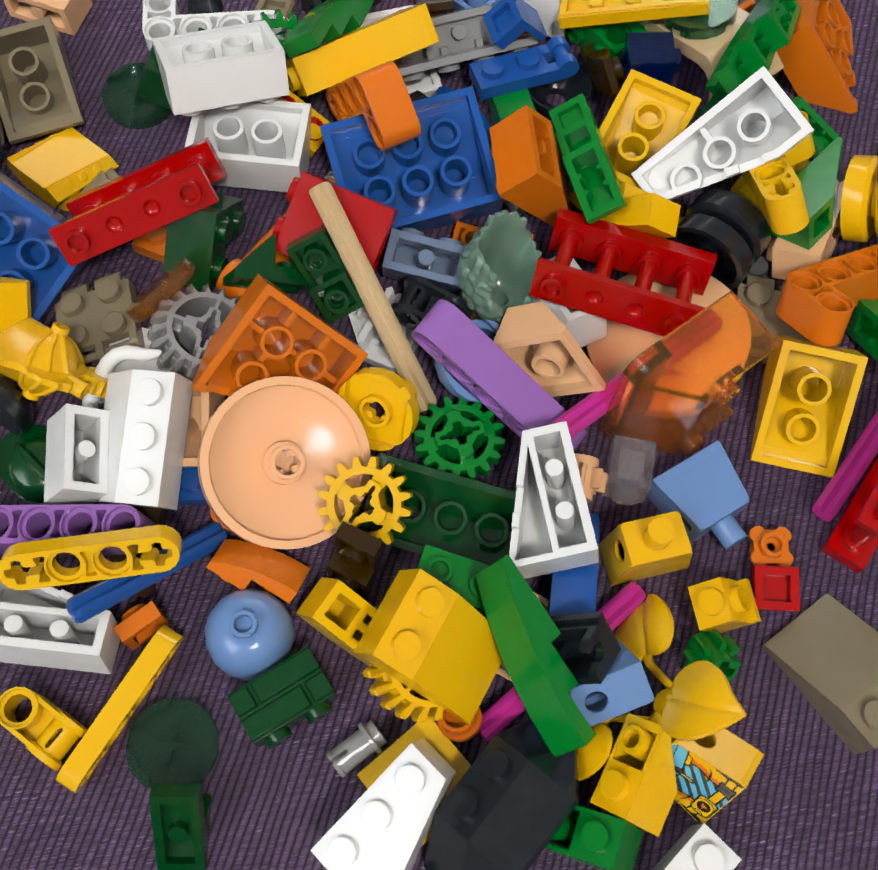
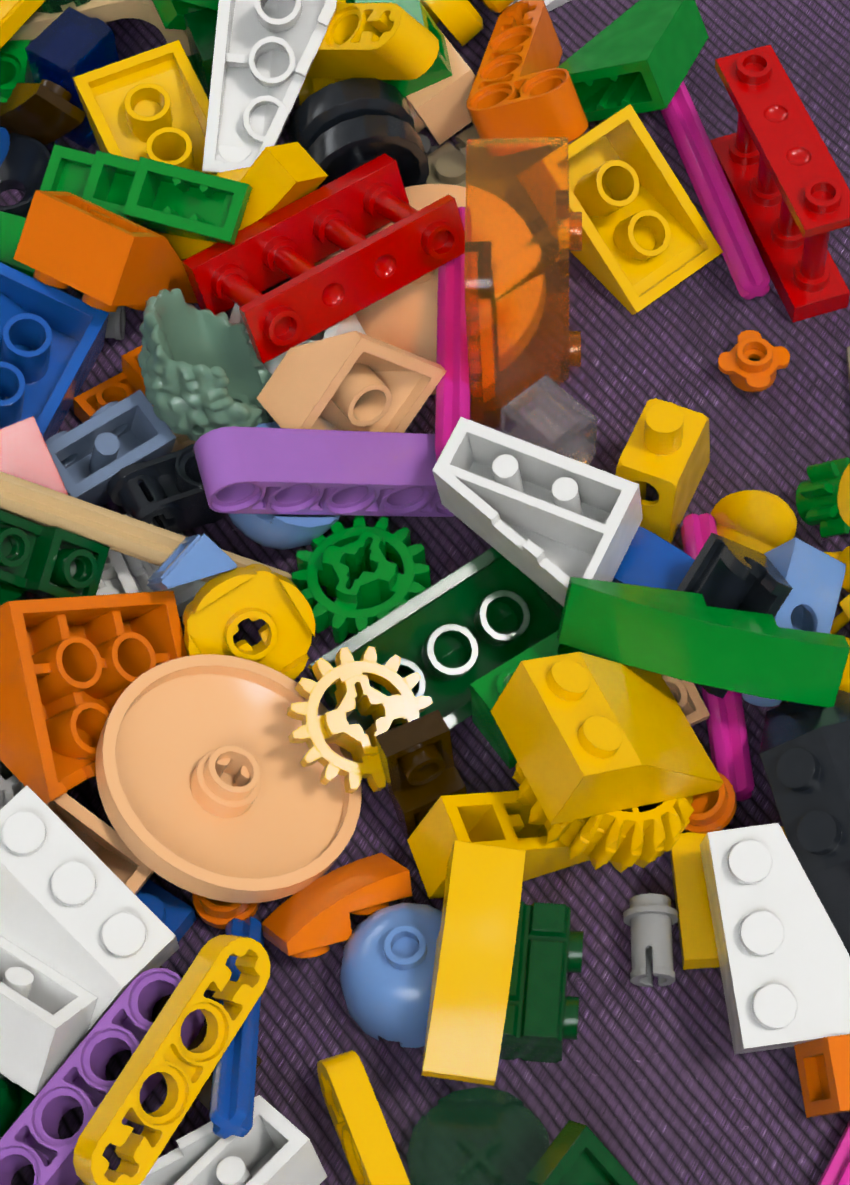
camera: 45 degrees left, 10 degrees down
(140, 624) = (293, 1087): orange plate -> none
(251, 668) = (473, 963): none -> yellow slope
(383, 352) = (190, 561): none -> medium blue slope
(705, 494) = (639, 364): medium blue torso -> none
(724, 604) = (785, 441): yellow brick -> none
(776, 588) = (804, 387): red plate -> none

